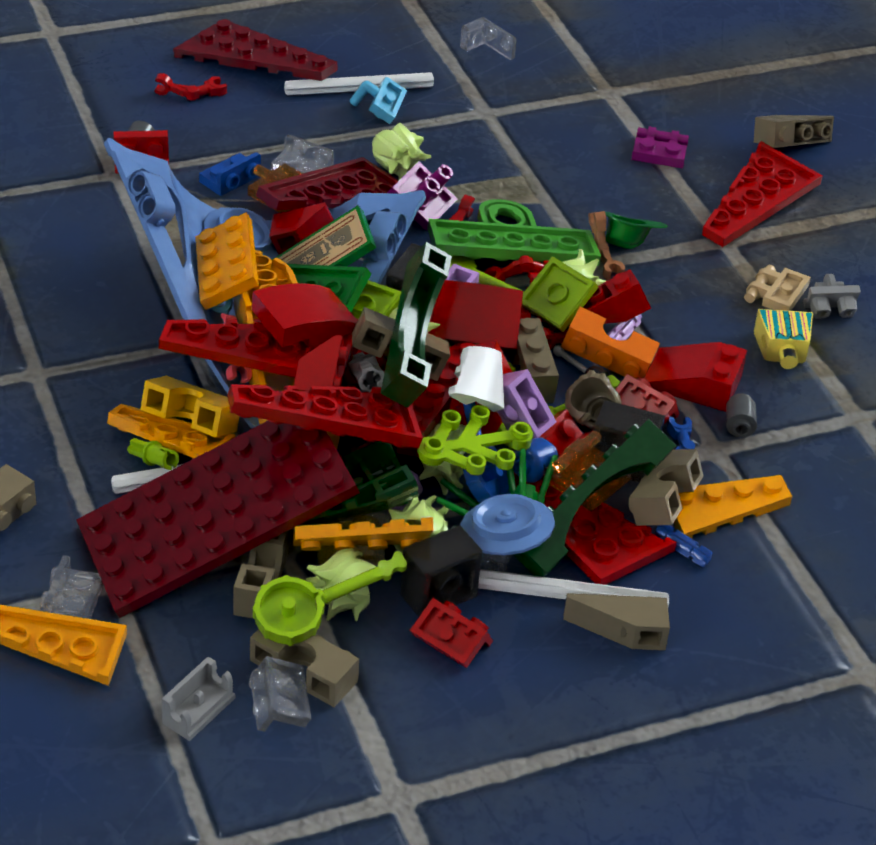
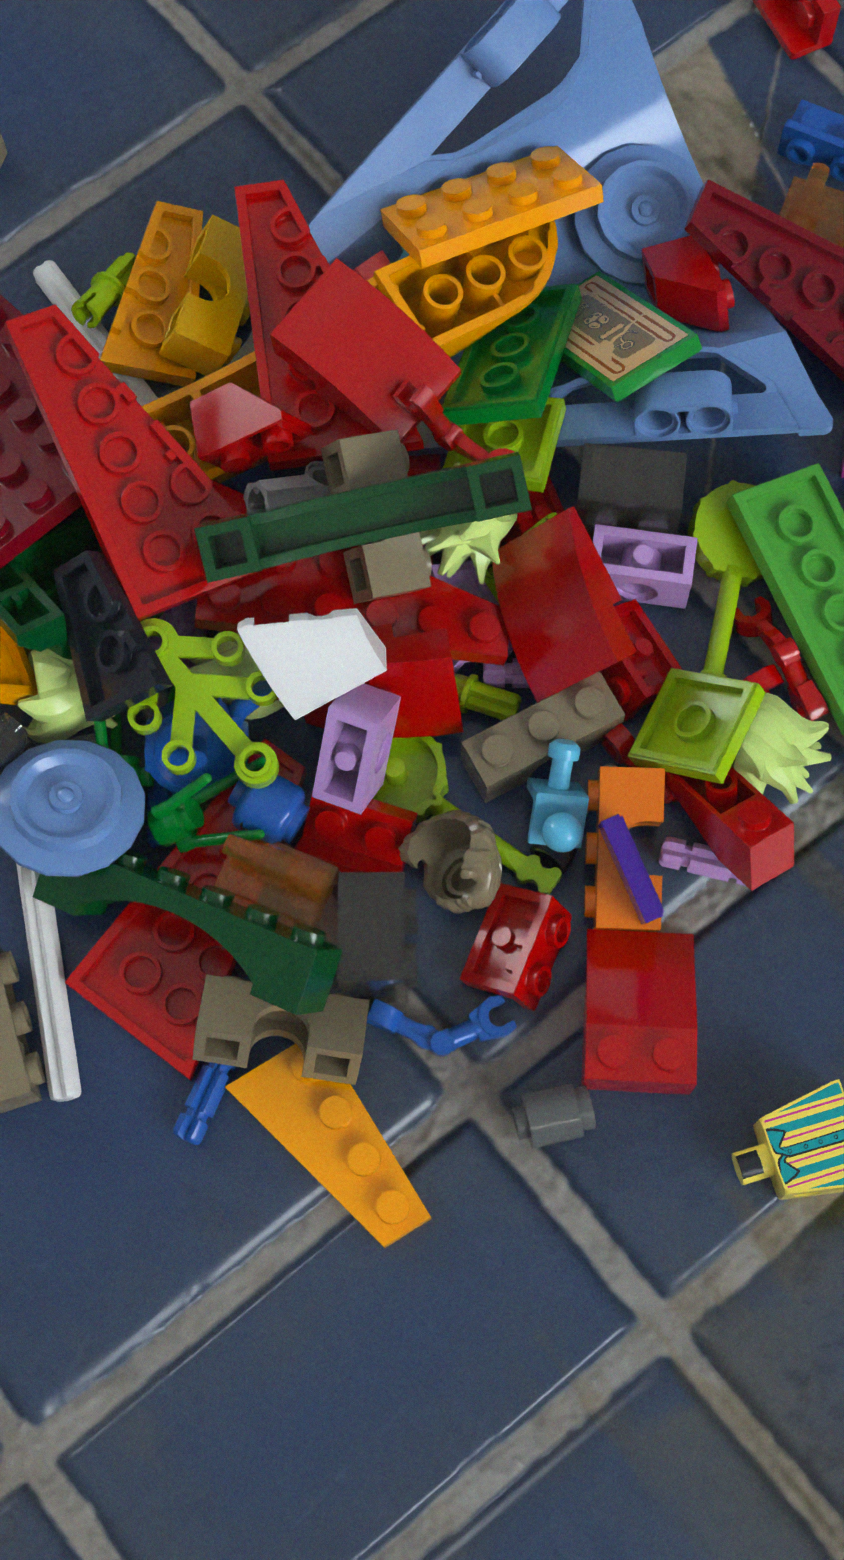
camera: 80 degrees right, 30 degrees up
(354, 304) = (426, 407): none -> red piece
(432, 457) = (106, 640): none -> black wing
(581, 355) = (558, 804): none -> medium azure piece
(631, 330) = (631, 869): none -> dark purple tile

